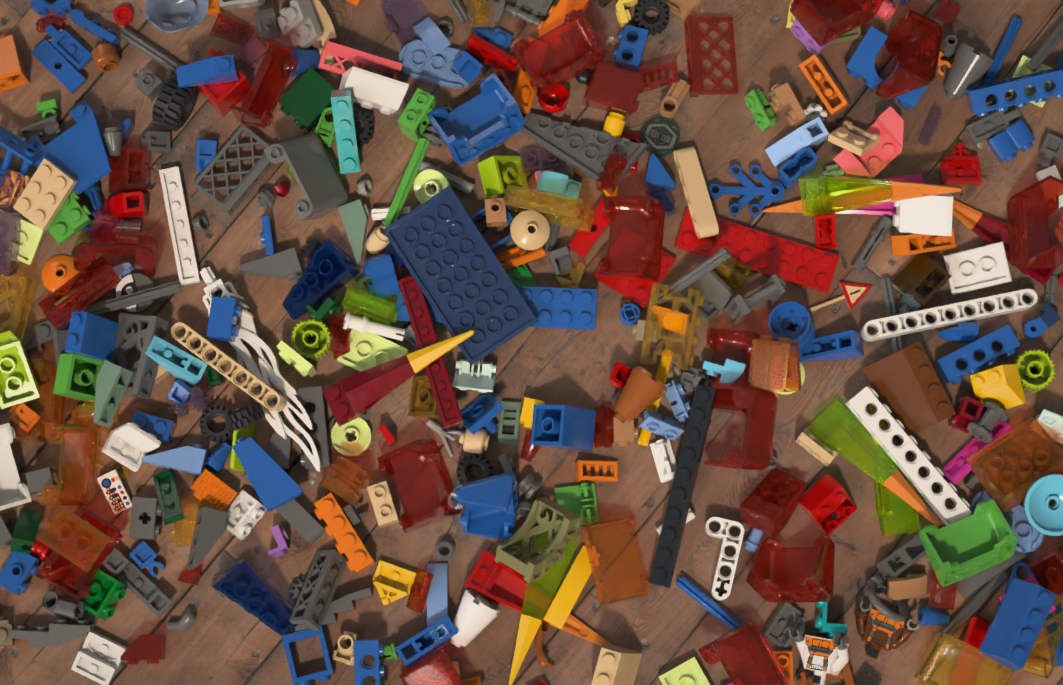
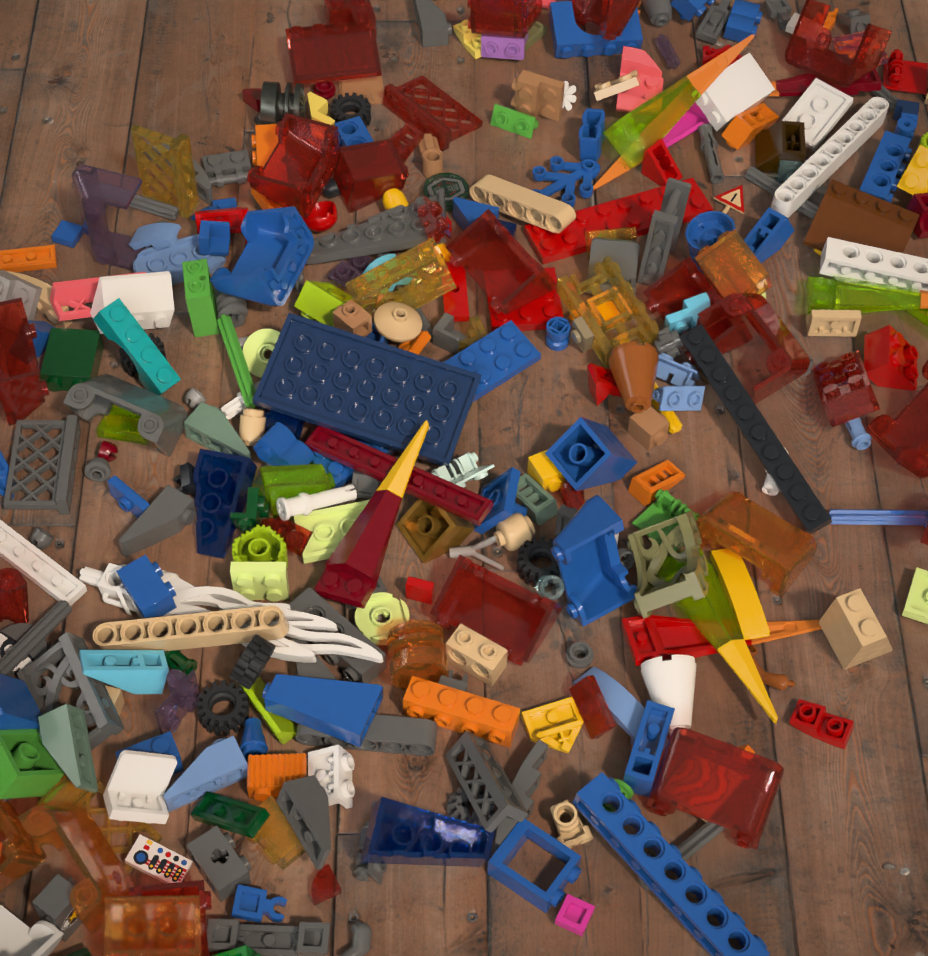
camera: 45 degrees left, 25 degrees down
(179, 392) = (150, 701): blue tile -> none
(280, 536) = (396, 770): medium lavender bracket -> none
(325, 130) = (110, 362): bright green piece -> none
(602, 435) = (632, 443): clear red hinge -> none
(664, 459) = (710, 428): white hinge -> none
(696, 273) = (591, 242): dark grey axle -> none
(723, 559) = (853, 462): white beam -> none
(805, 136) = (570, 118): light blue slope -> none
(825, 84) = (553, 65): orange brick -> none
(962, 333) = (854, 165): blue plate -> none

